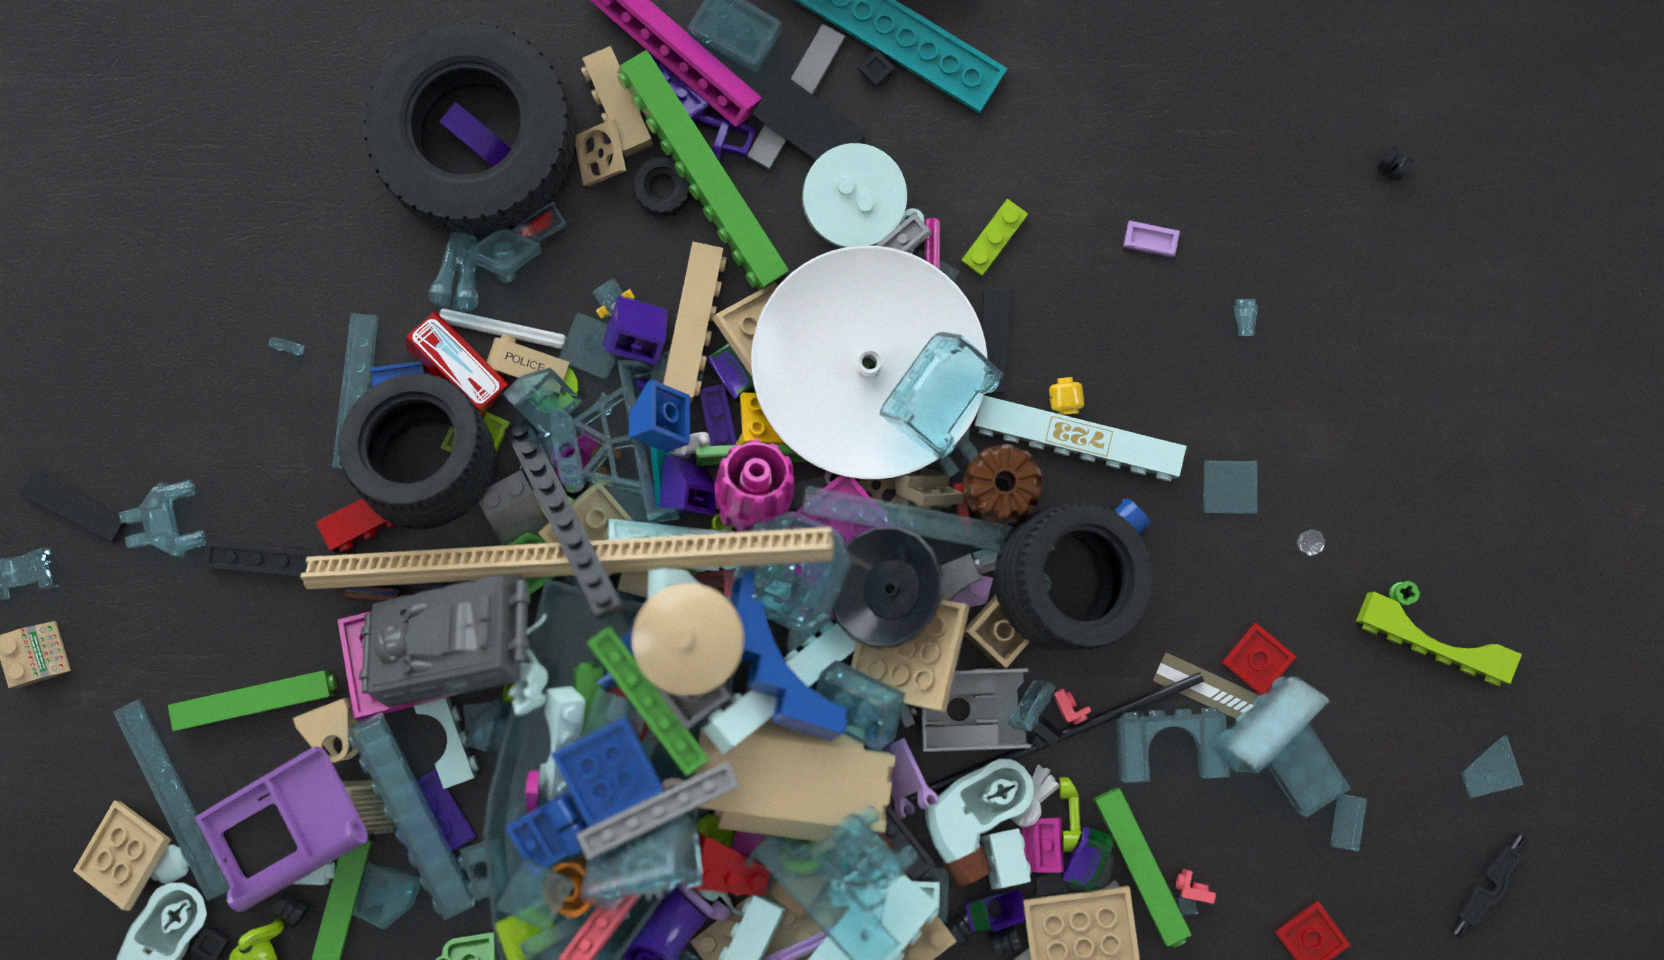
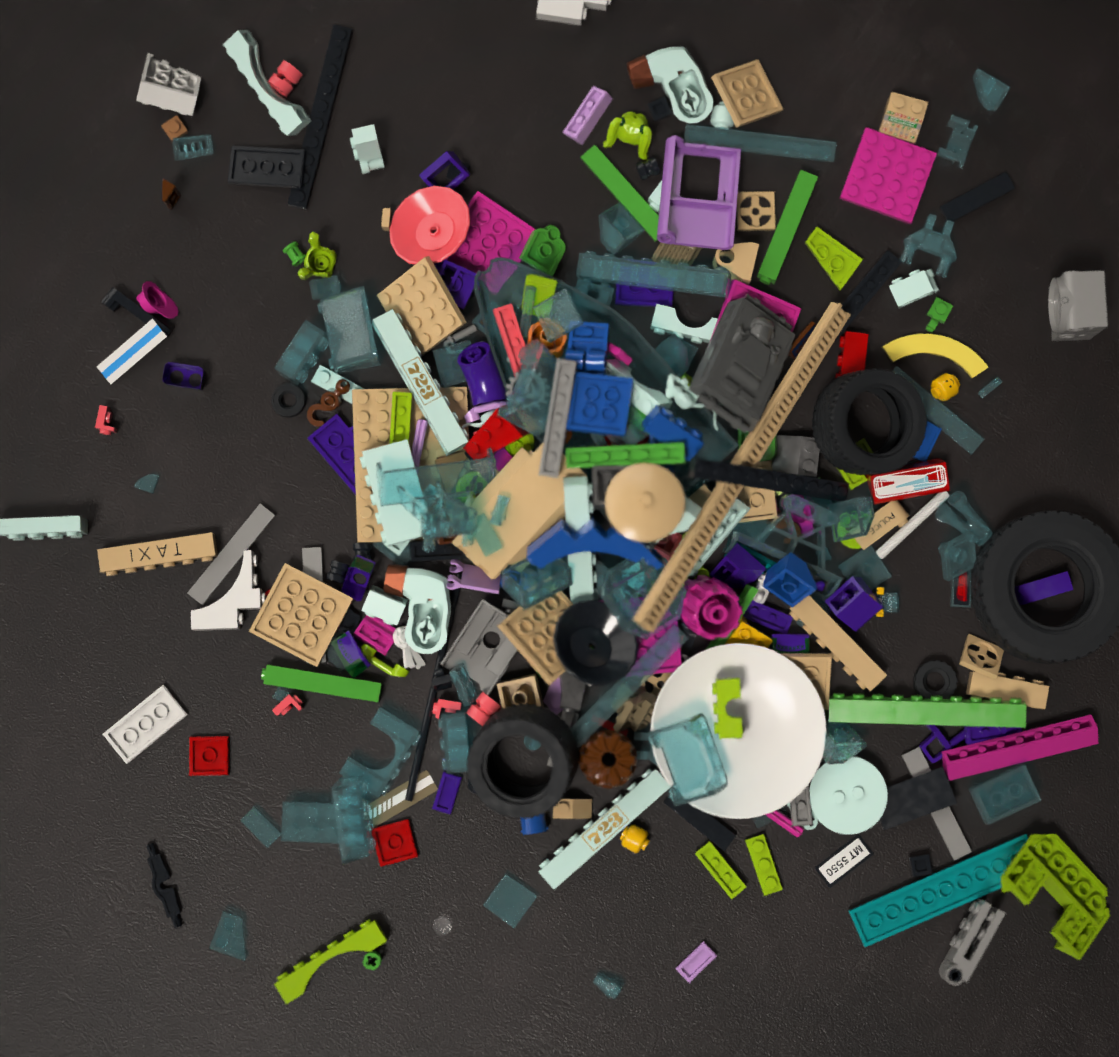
camera: 120 degrees right, 0 degrees up
(114, 625) = (888, 175): none -> dark pink plate
(117, 298) = (1077, 305): none -> light grey piece
(228, 508) = (914, 287): none -> light aqua hinge
(238, 460) = (938, 312): none -> bright green plate
(252, 623) = (833, 257): none -> lime wing
(277, 436) = (939, 346): none -> light yellow tile
(285, 755) = (741, 225): none -> tan piece
(319, 396) = (945, 387): none -> yellow head
(582, 669) = (669, 429): none -> blue brick
(803, 240) = (841, 743): none -> clear light blue slope
(811, 802) = (499, 511): none -> clear light blue pin
(835, 404) = (726, 725): none -> lime arch
(850, 796) = (486, 536): none -> clear light blue tile
(928, 154) = (844, 861): none -> sticker
(1034, 280) = (720, 870): none -> lime plate
(1043, 663) = (483, 709): none -> coral wheel
(1081, 485) = (573, 809): none -> tan slope
(1103, 670) = (454, 742): none -> clear light blue brick
(1162, 639) = (447, 793): none -> dark purple tile

